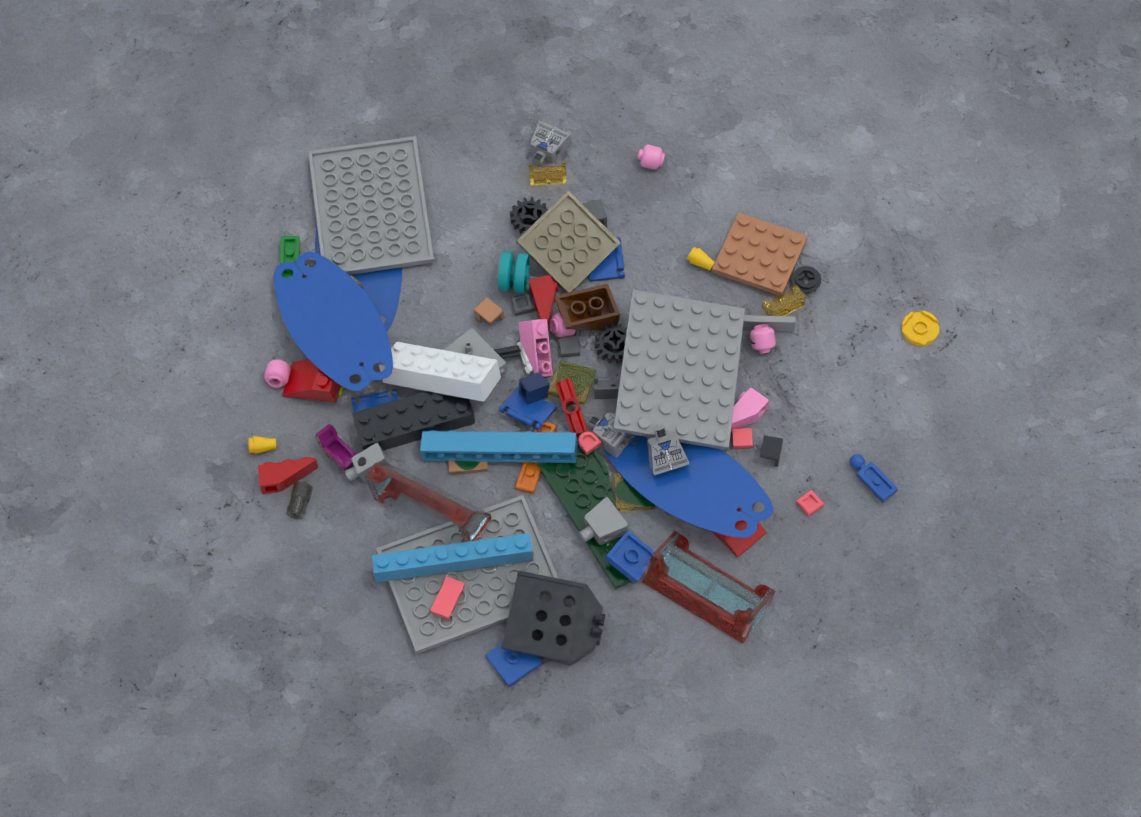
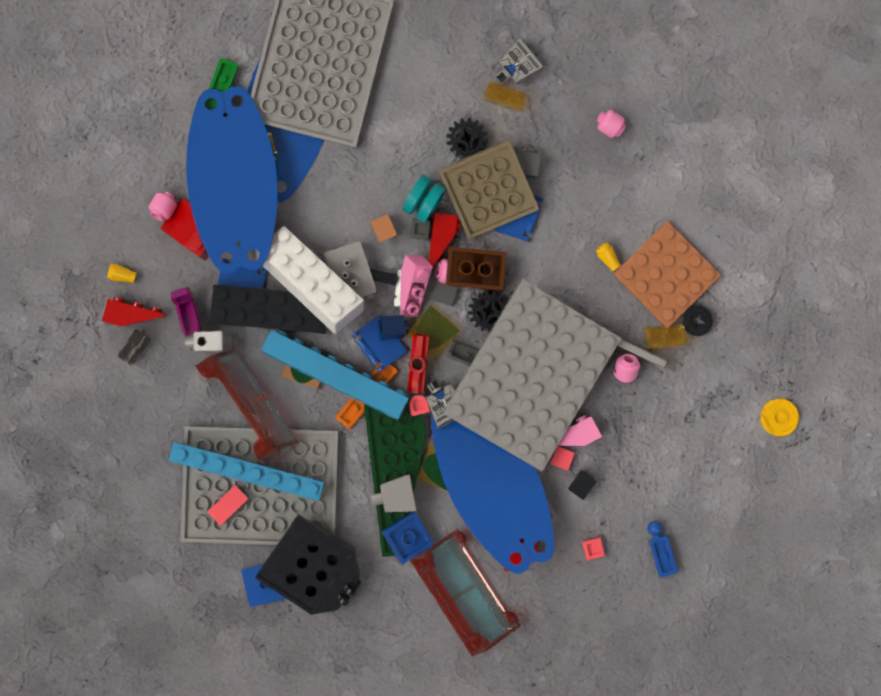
camera: 15 degrees right, 25 degrees up
(665, 451) = (481, 455): light grey torso -> none

